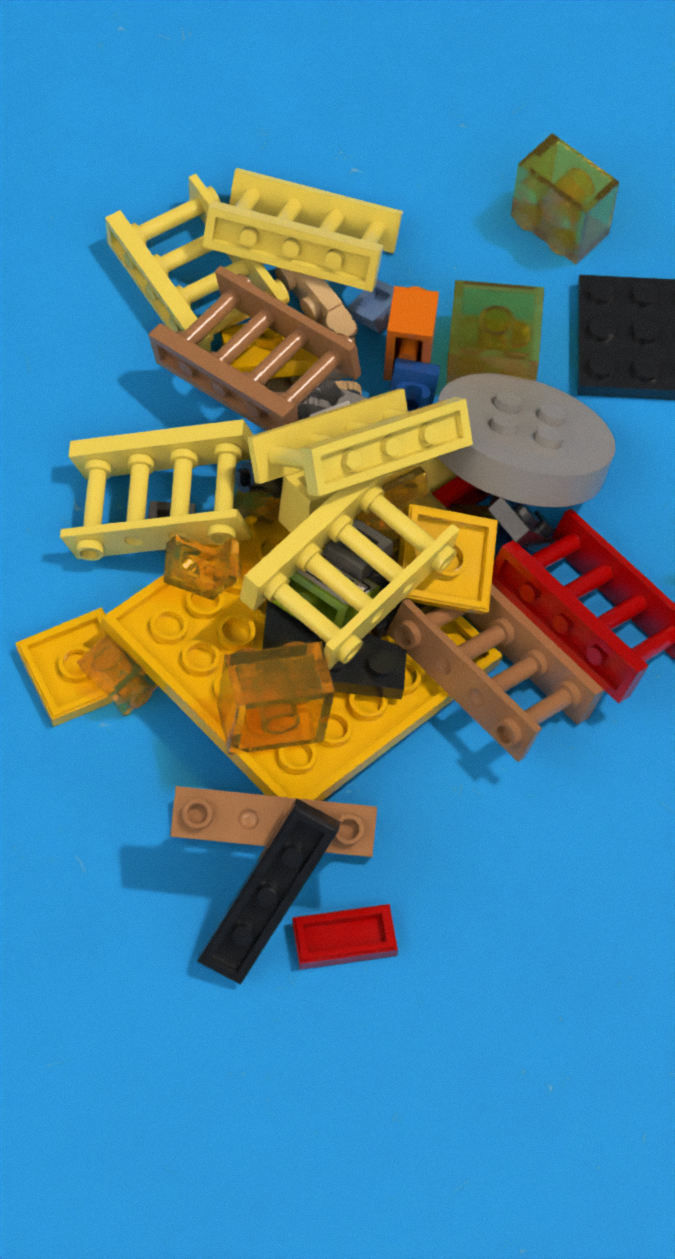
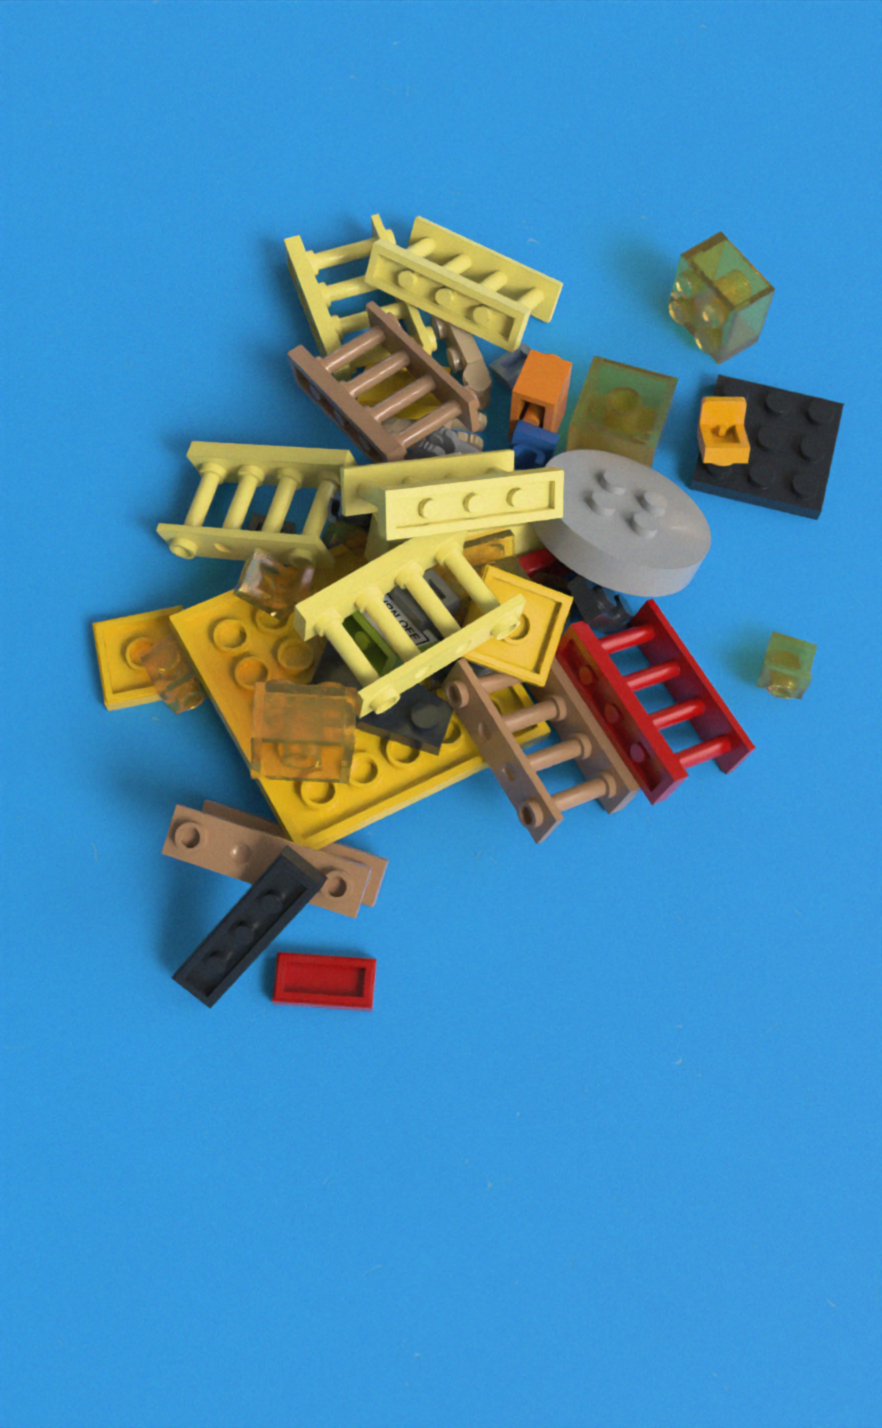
camera: 15 degrees right, 5 degrees up
(599, 332) = (722, 431): none -> light orange bracket

